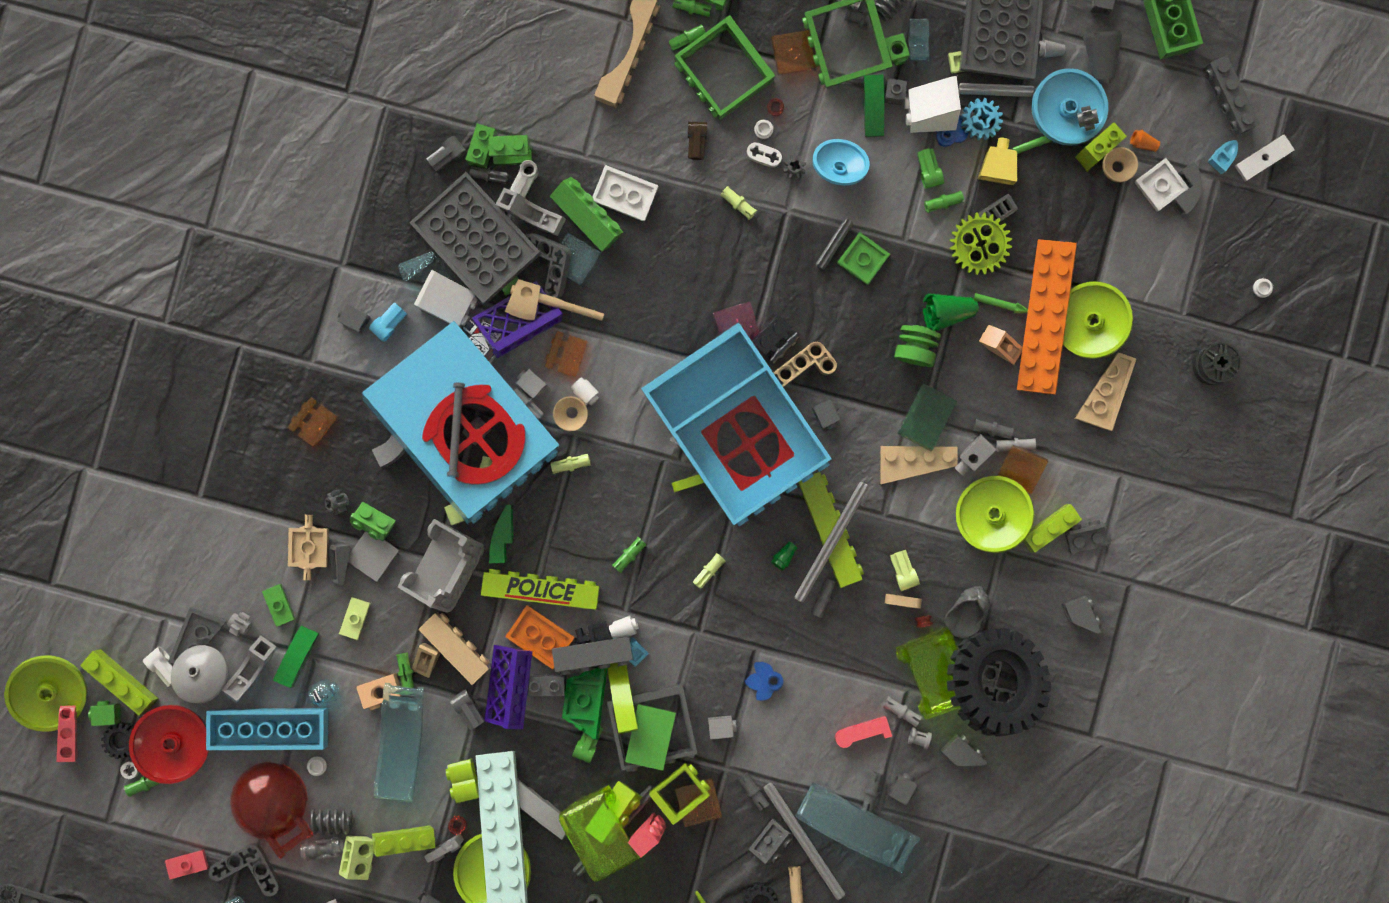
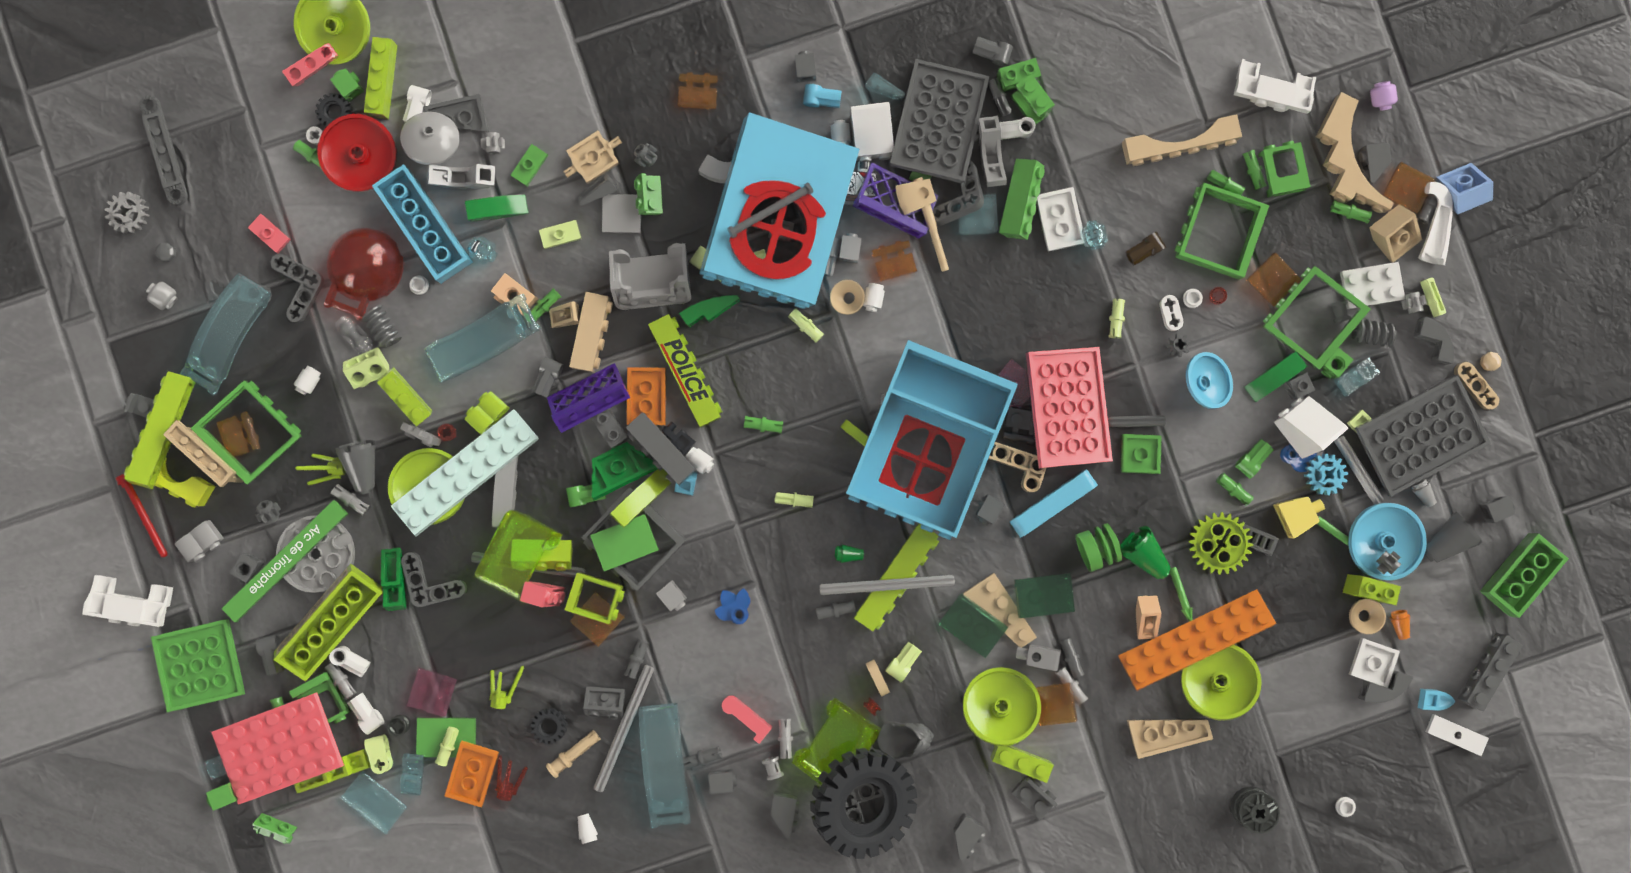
camera: 60 degrees right, 0 degrees up
(429, 326) = (840, 132): none -> white brick
(657, 174) = (1094, 235): none -> clear light blue head
(785, 292) = (1068, 407): none -> coral plate
(856, 358) = (1053, 503): none -> medium azure beam
(912, 492) = (973, 625): none -> clear green tile

